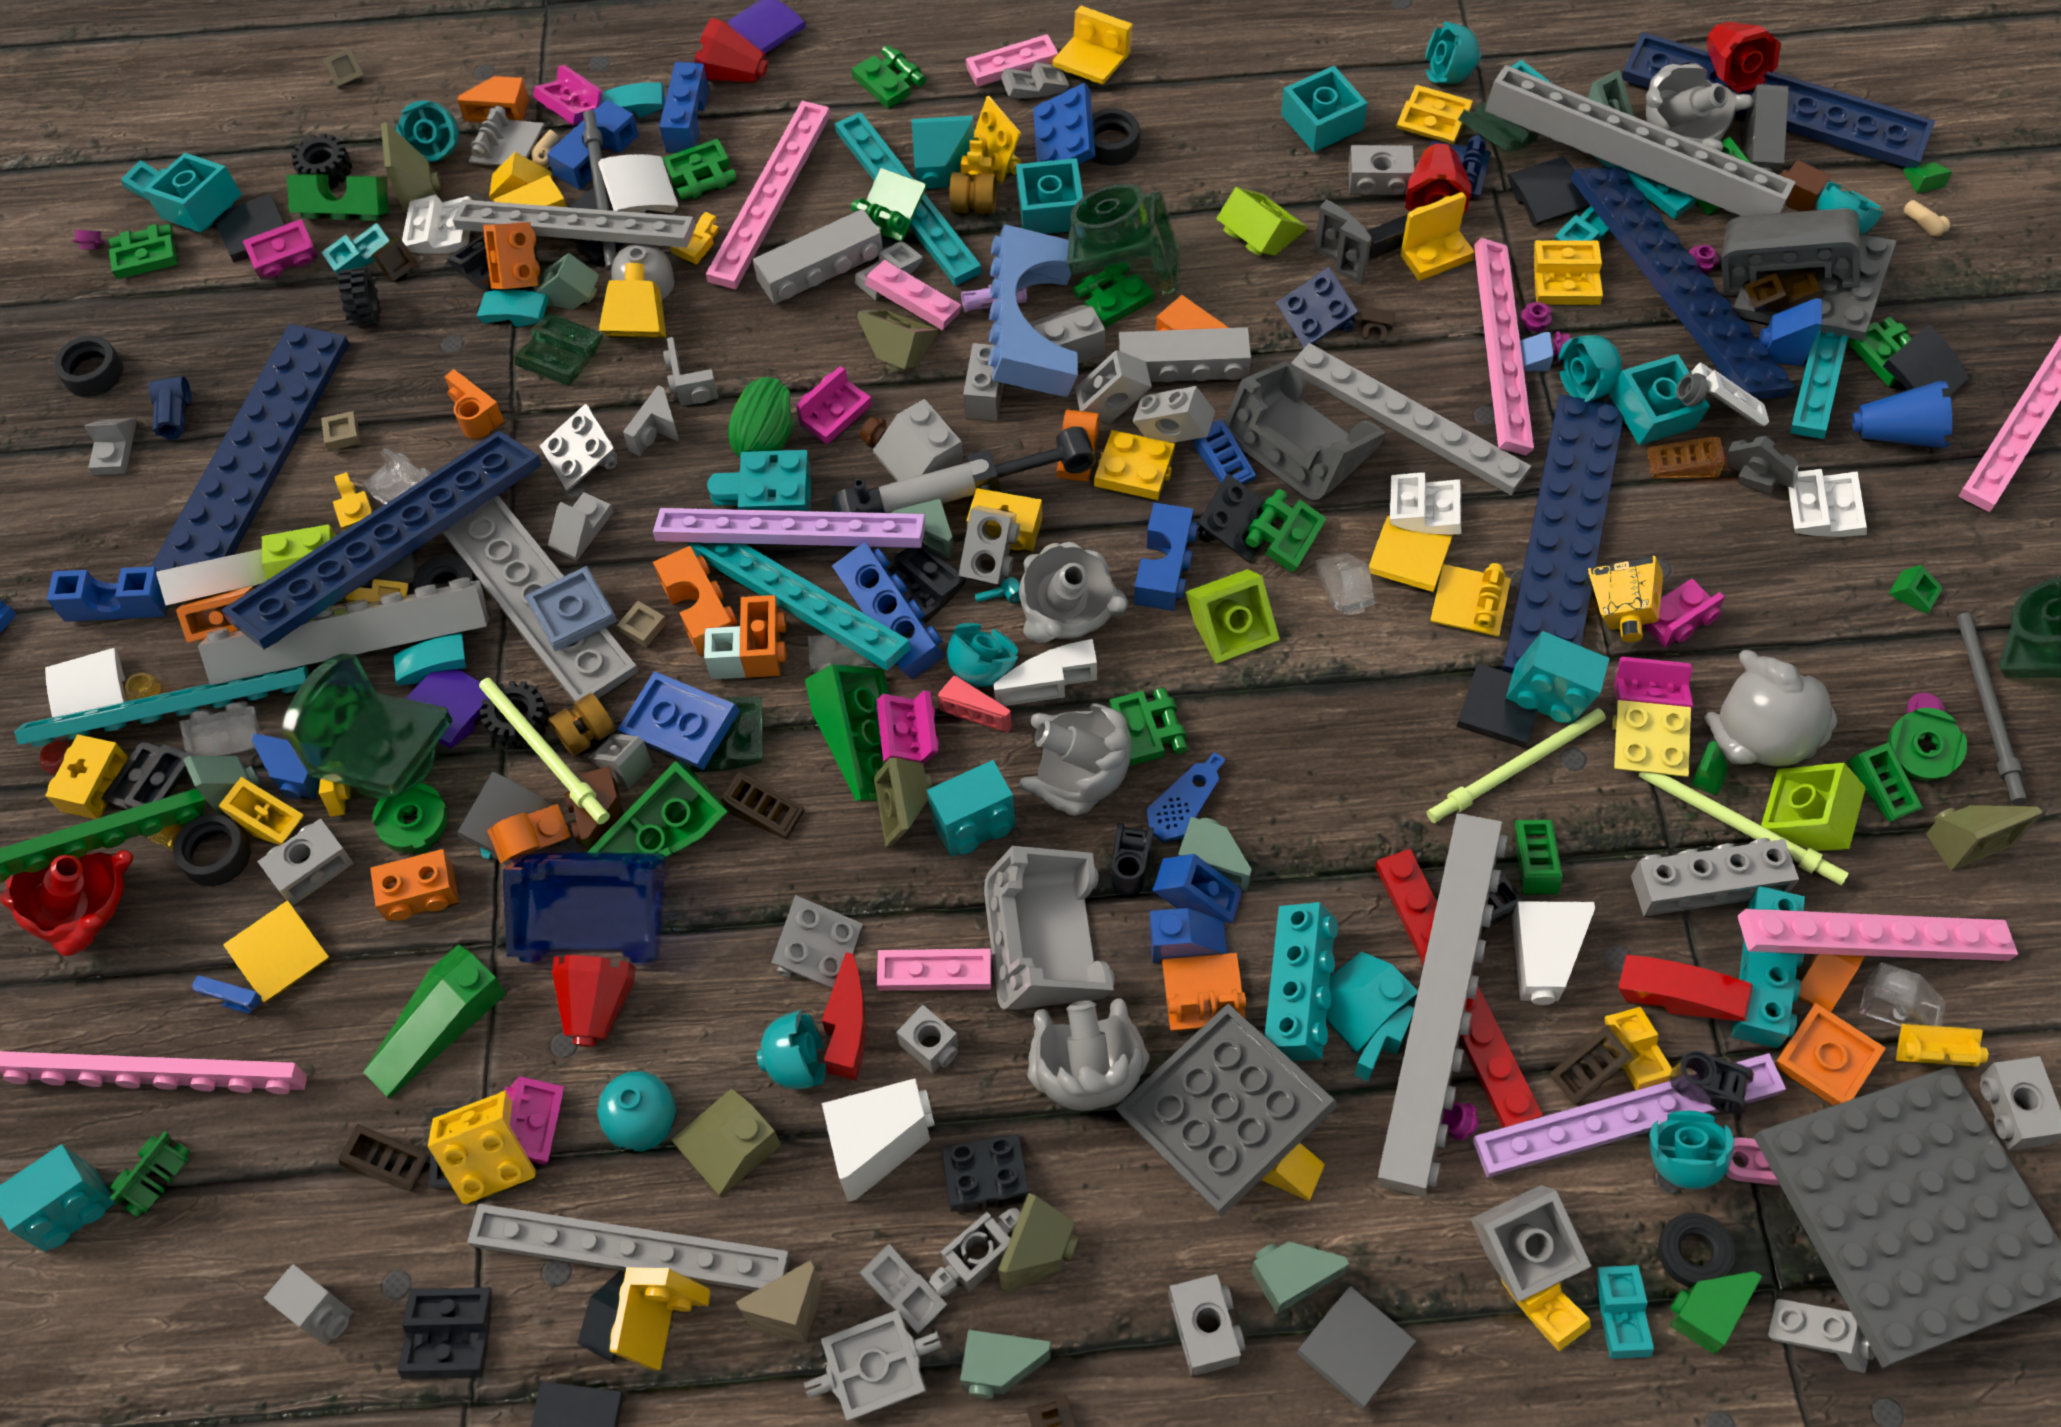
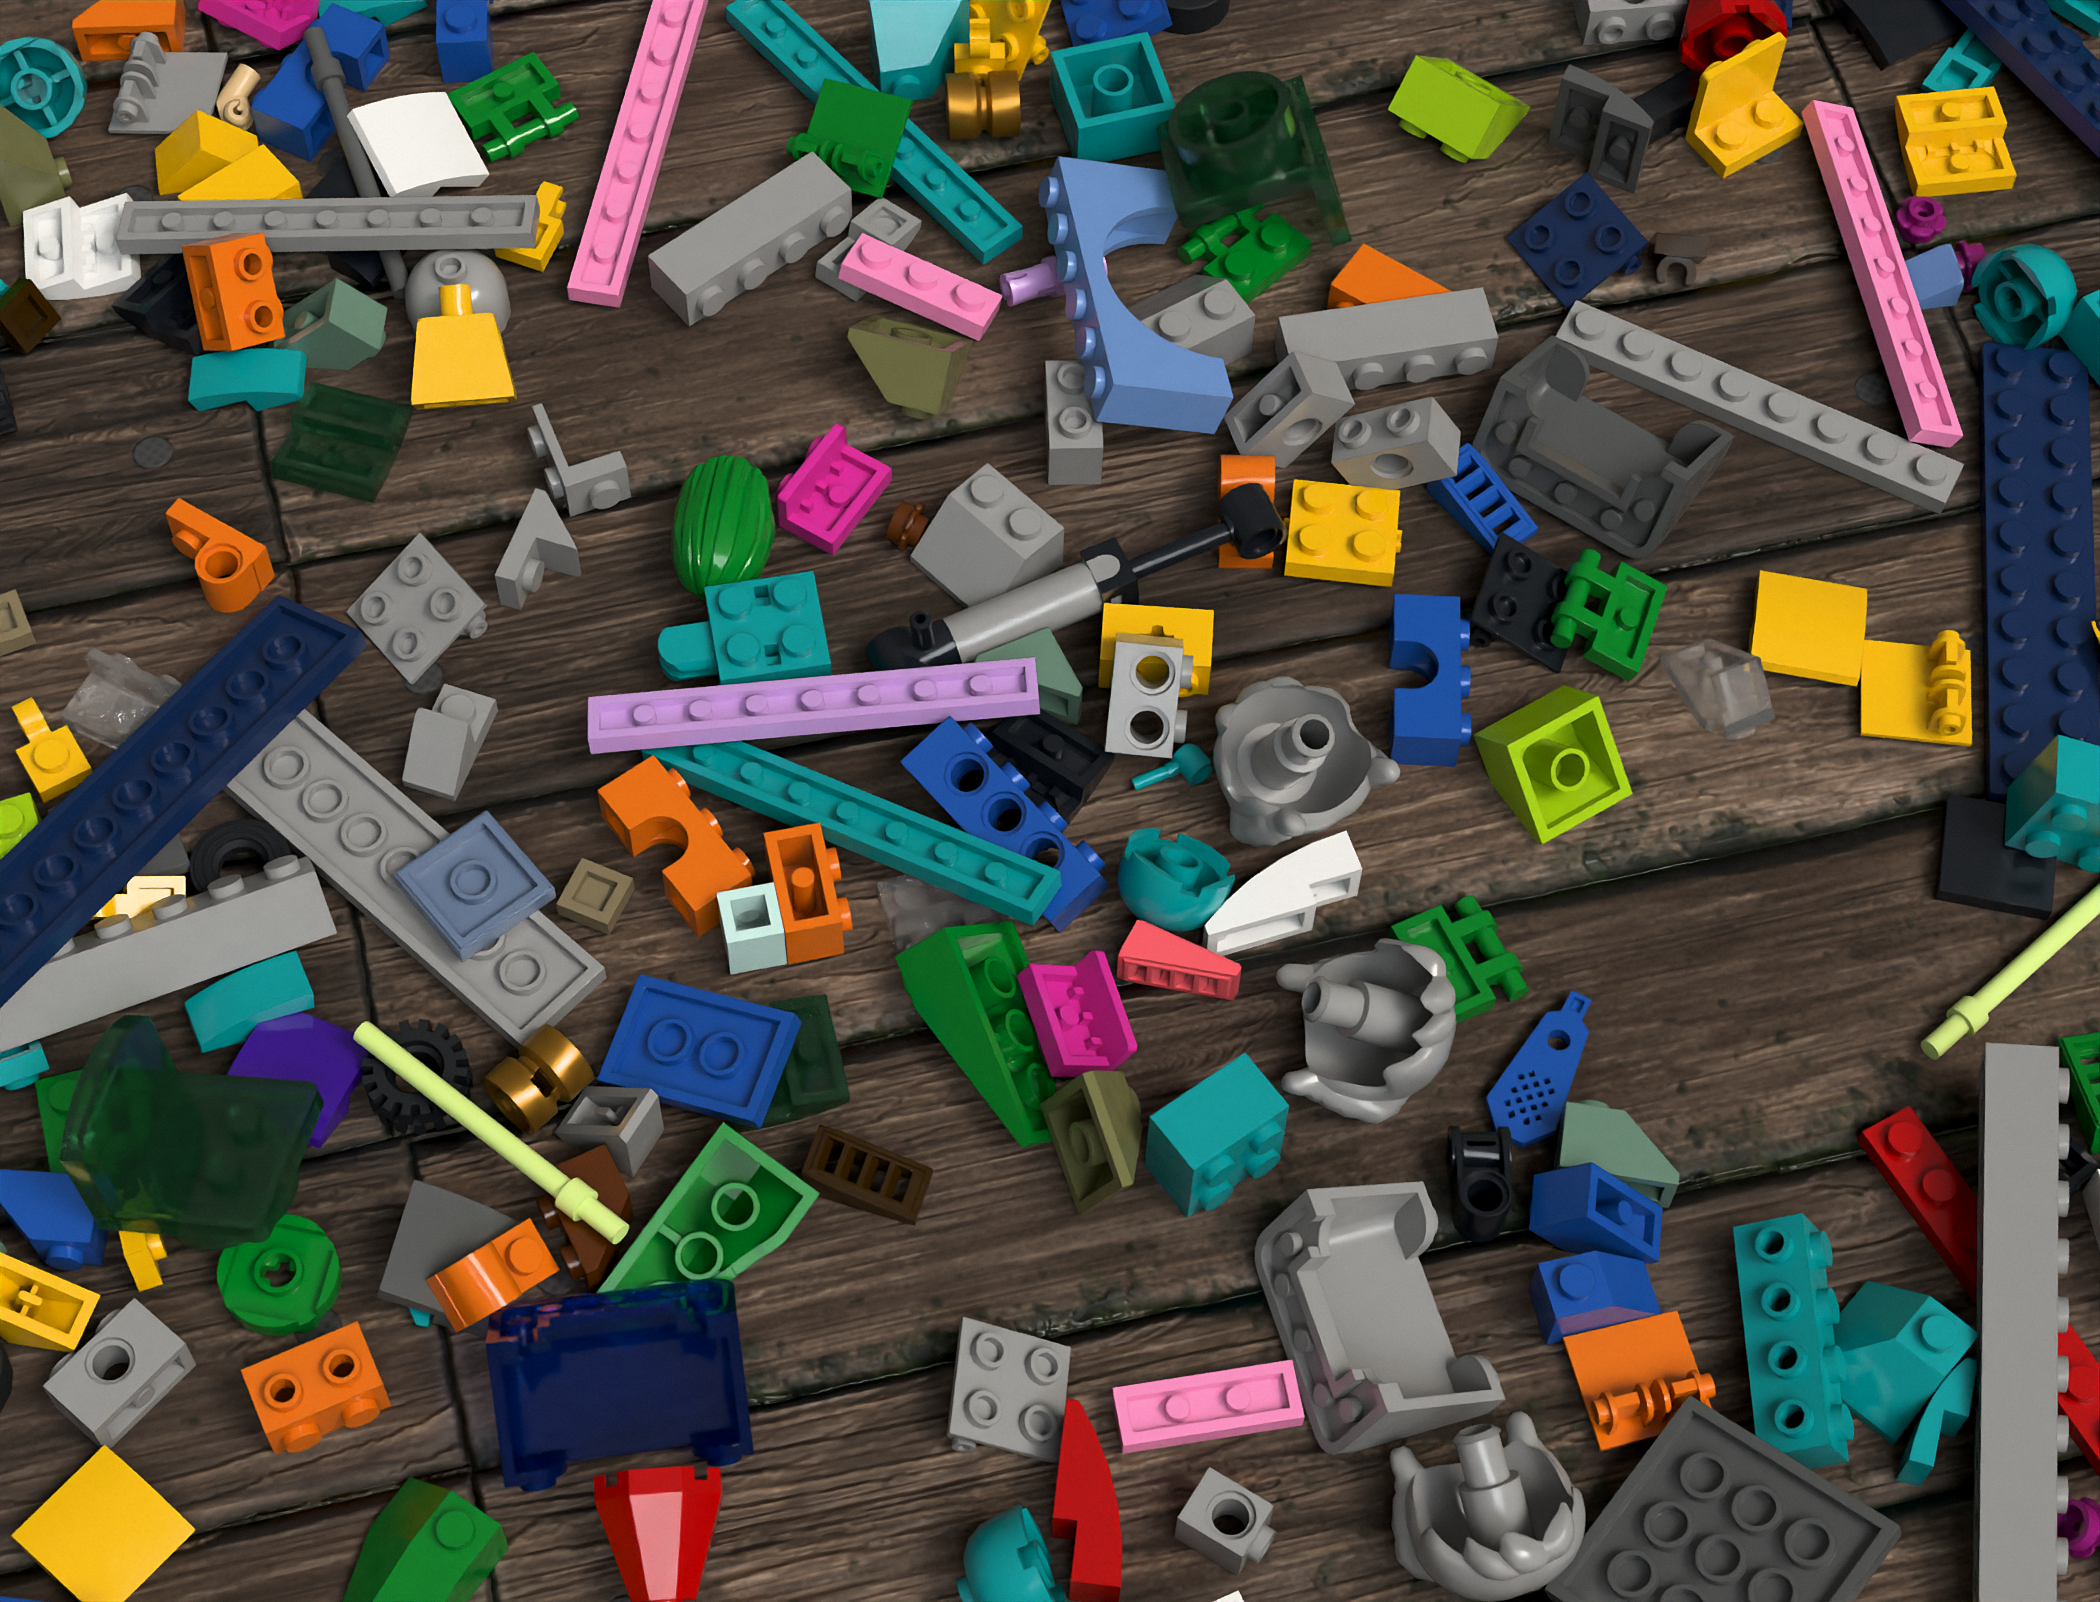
camera: 15 degrees left, 0 degrees up
(1425, 505) = (1817, 547): white slope -> none

